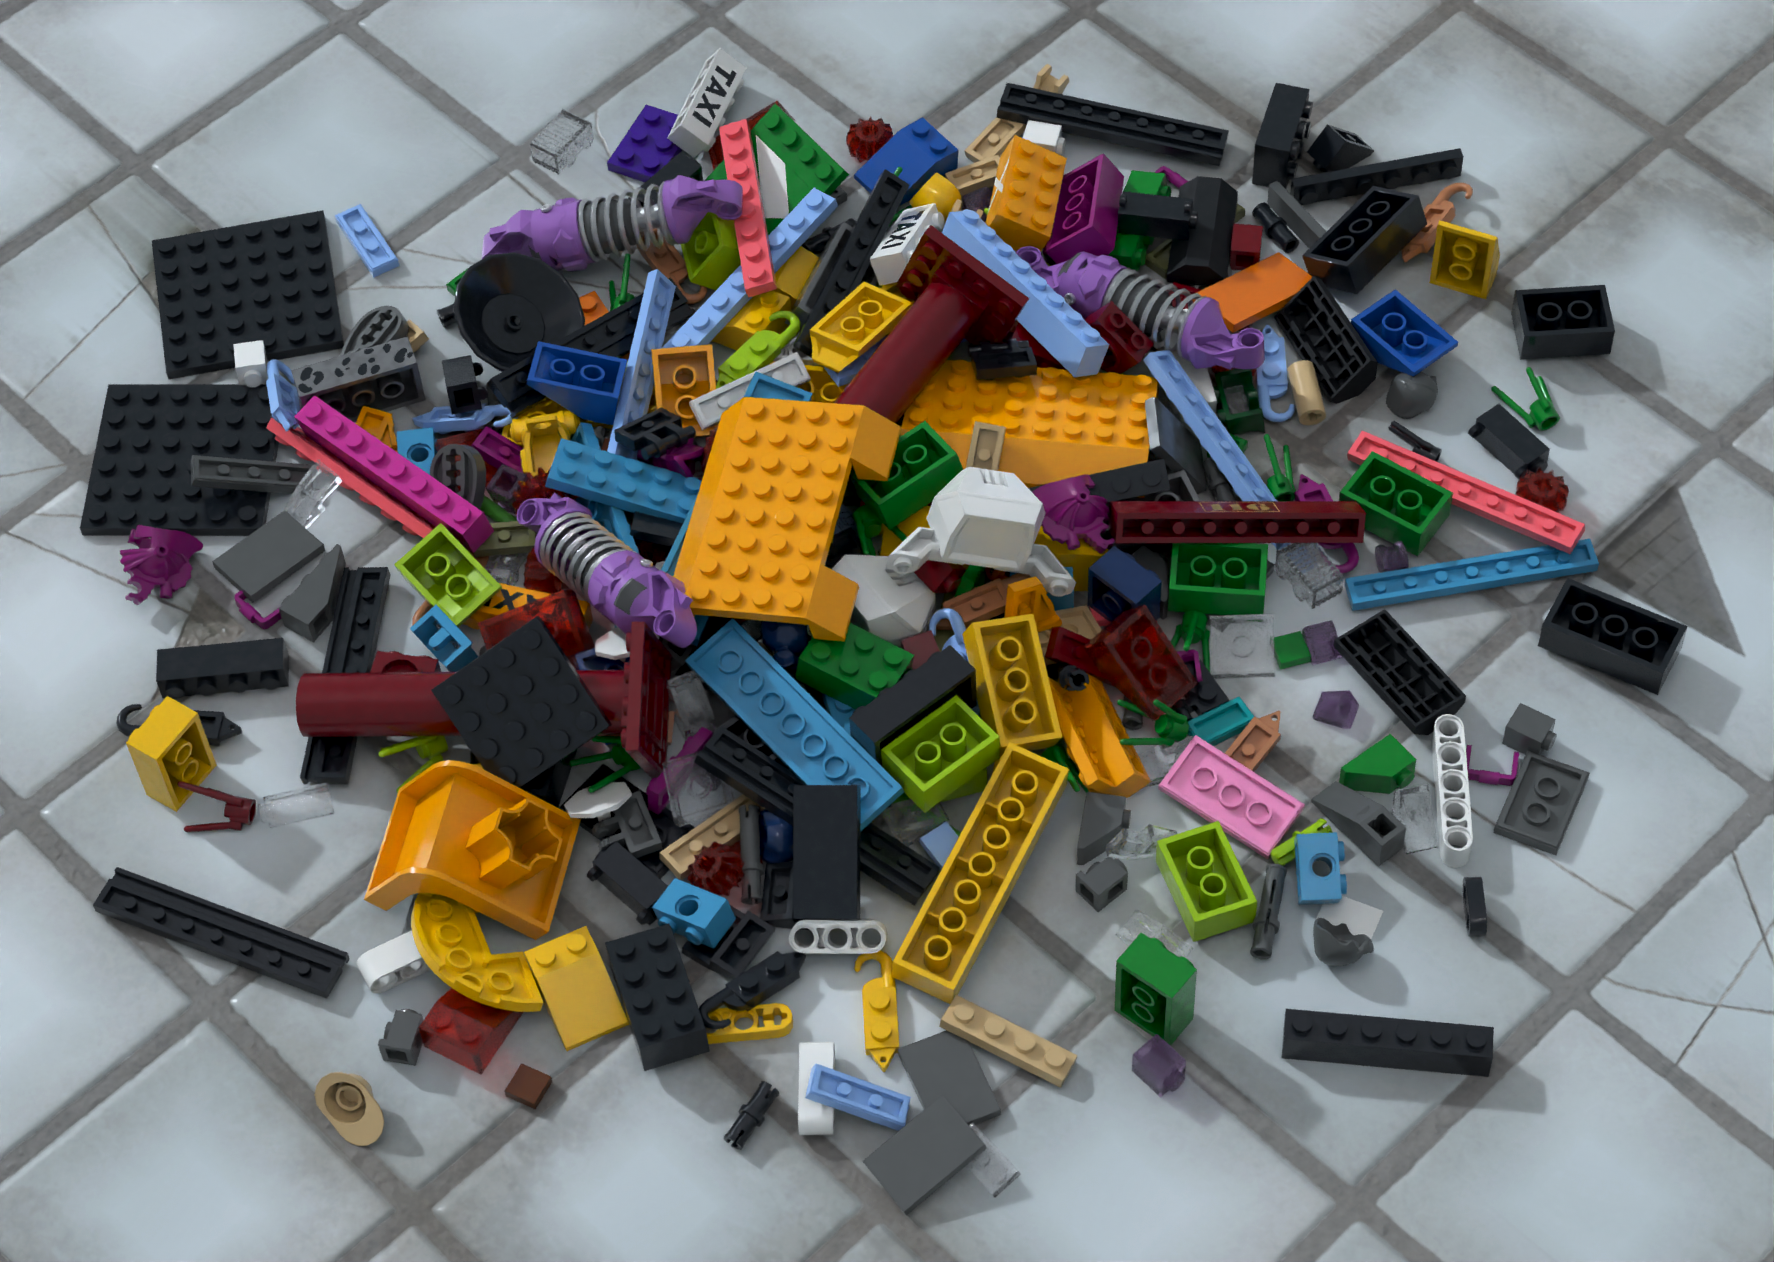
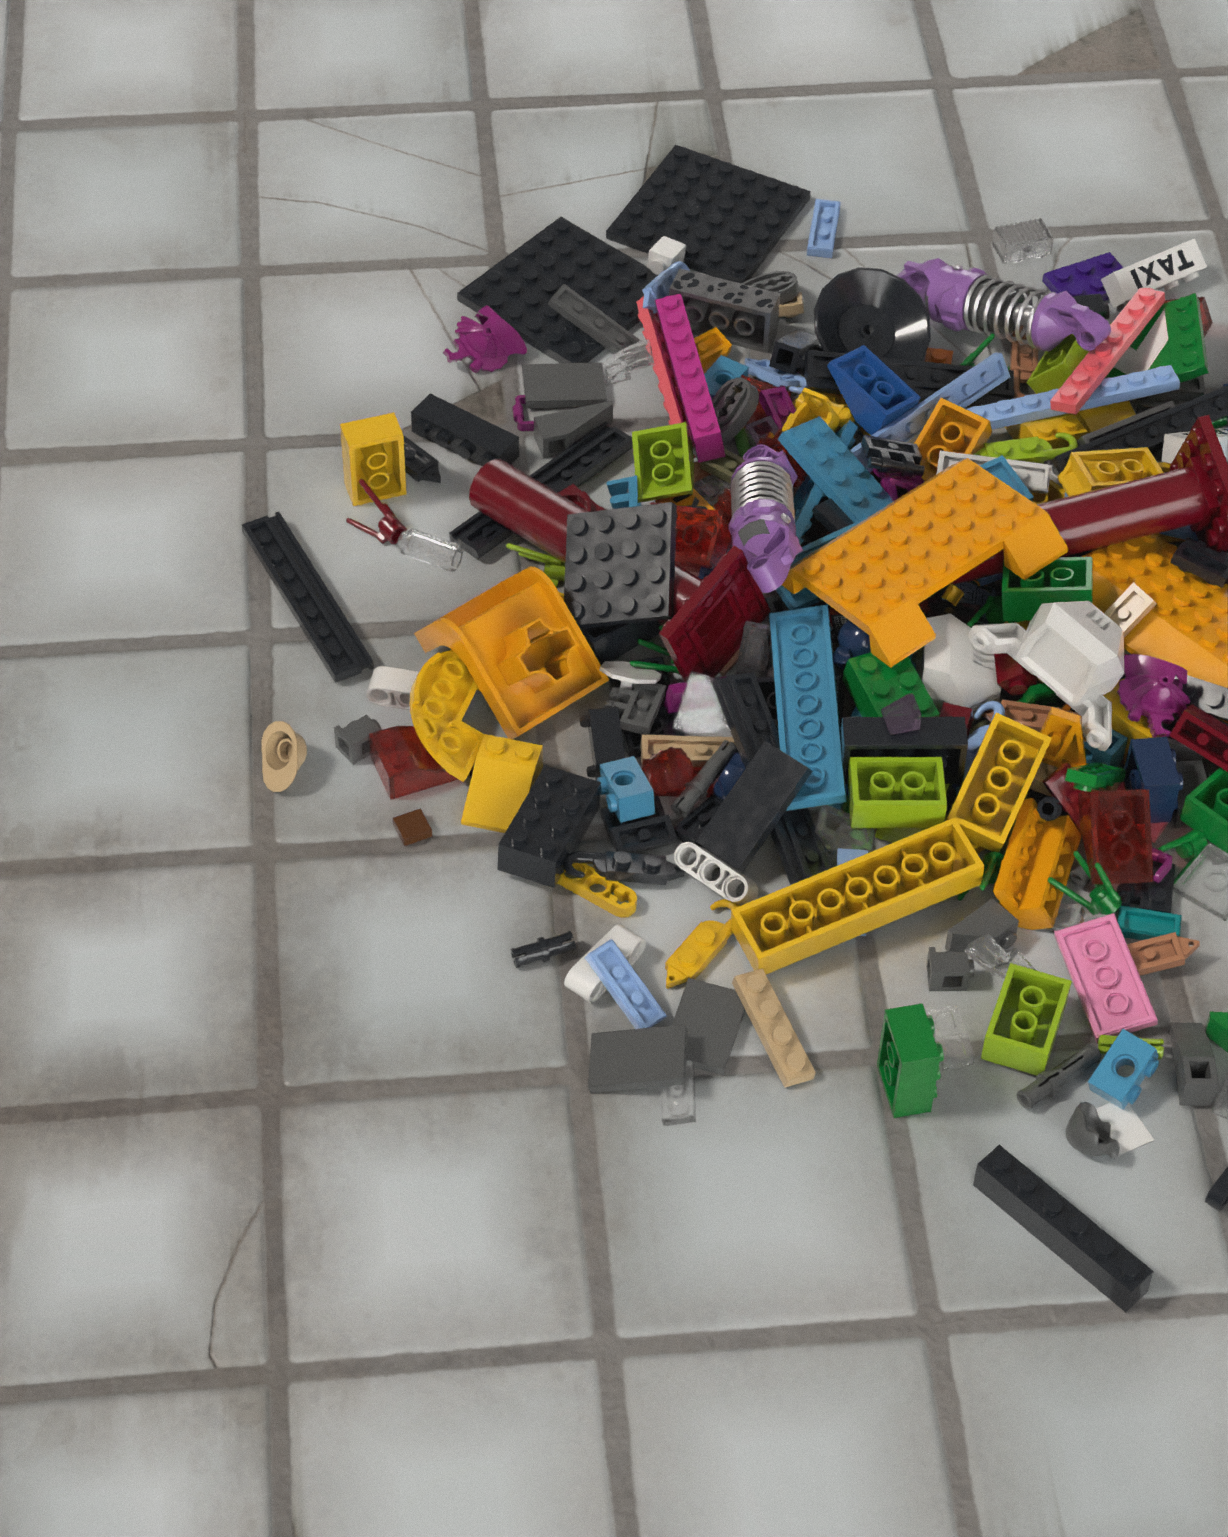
camera: 35 degrees right, 5 degrees down
(901, 680) = (902, 715): none -> clear purple slope
(1088, 622) = (1094, 776): none -> green plate
(1159, 1066) = (869, 1121): clear purple brick -> none

